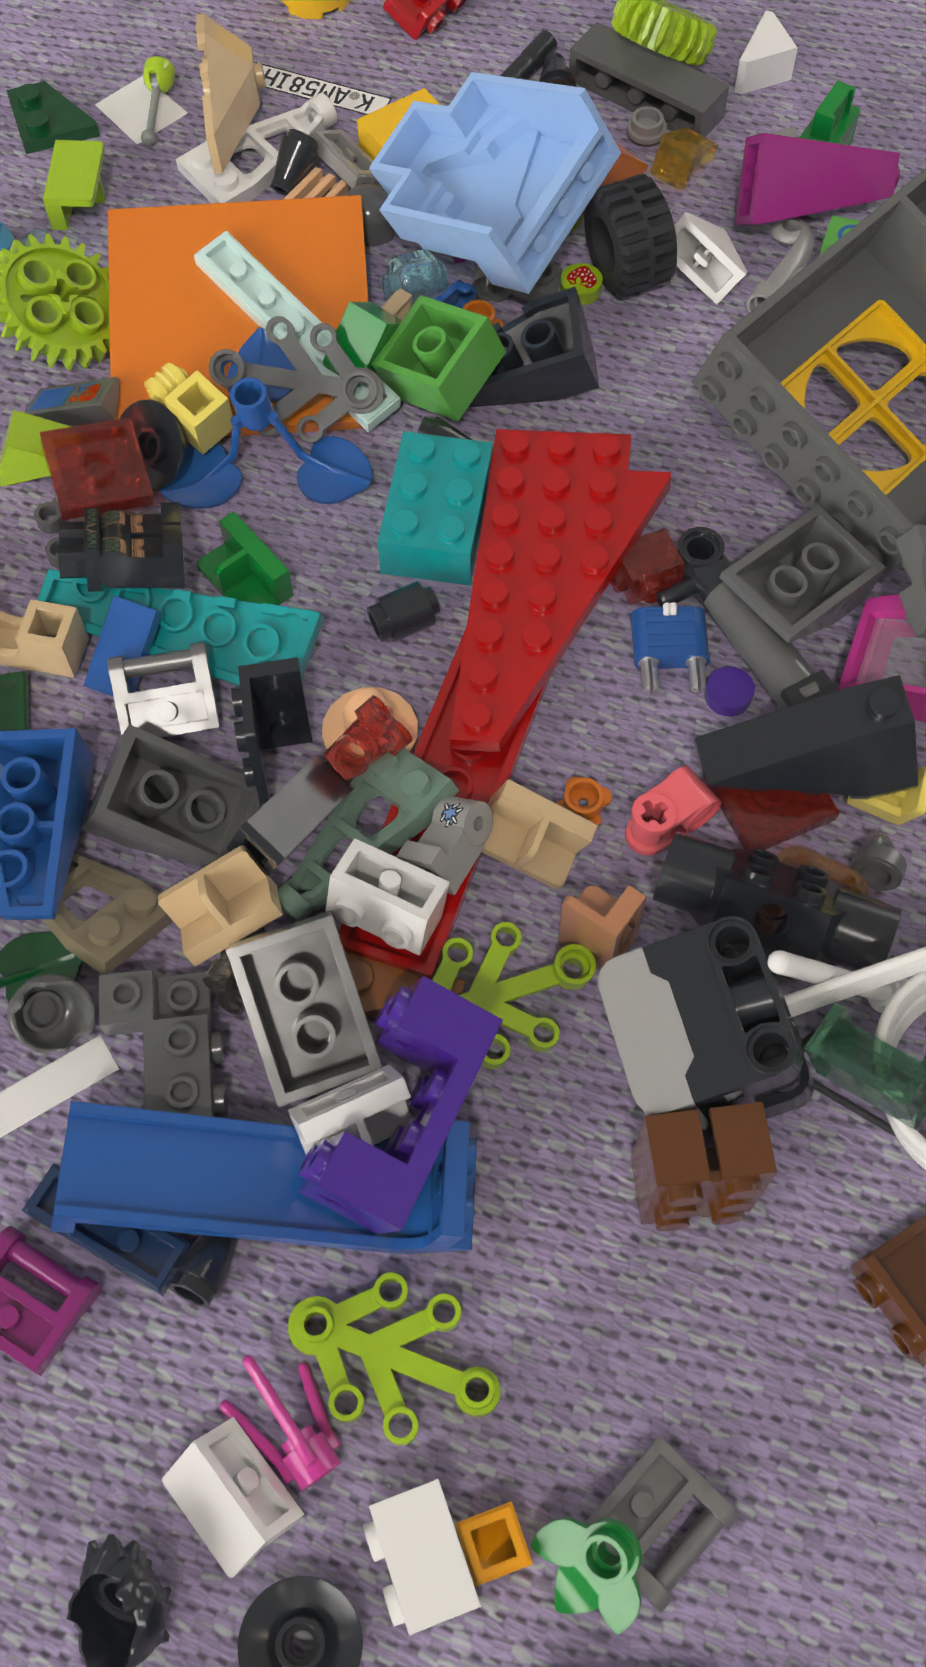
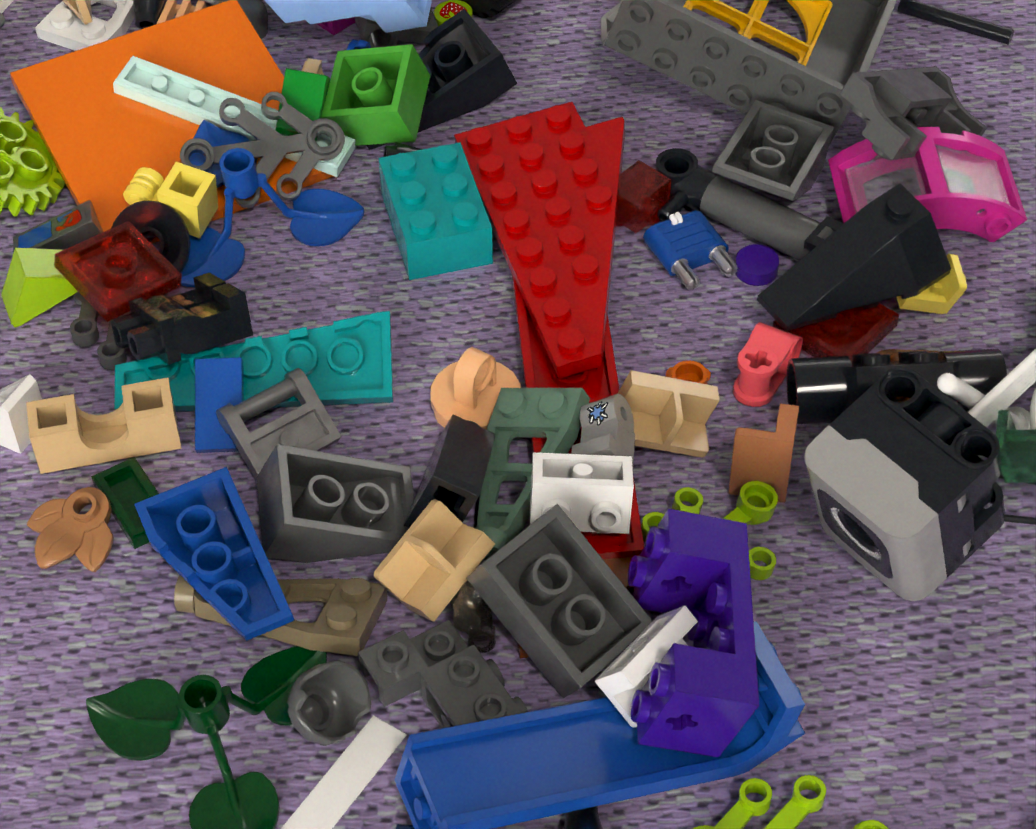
camera: 25 degrees left, 15 degrees down
(245, 566) = (290, 304): green panel -> none
(272, 714) = (392, 404): black bracket -> none
(374, 732) = (499, 379): clear red plate -> none
(403, 612) = (452, 296): black brick -> none
(416, 274) = (314, 43): clear light blue head -> none
(684, 1180) = (955, 590): reddish brown piece -> none
(880, 864) = (952, 336): dark grey tile -> none

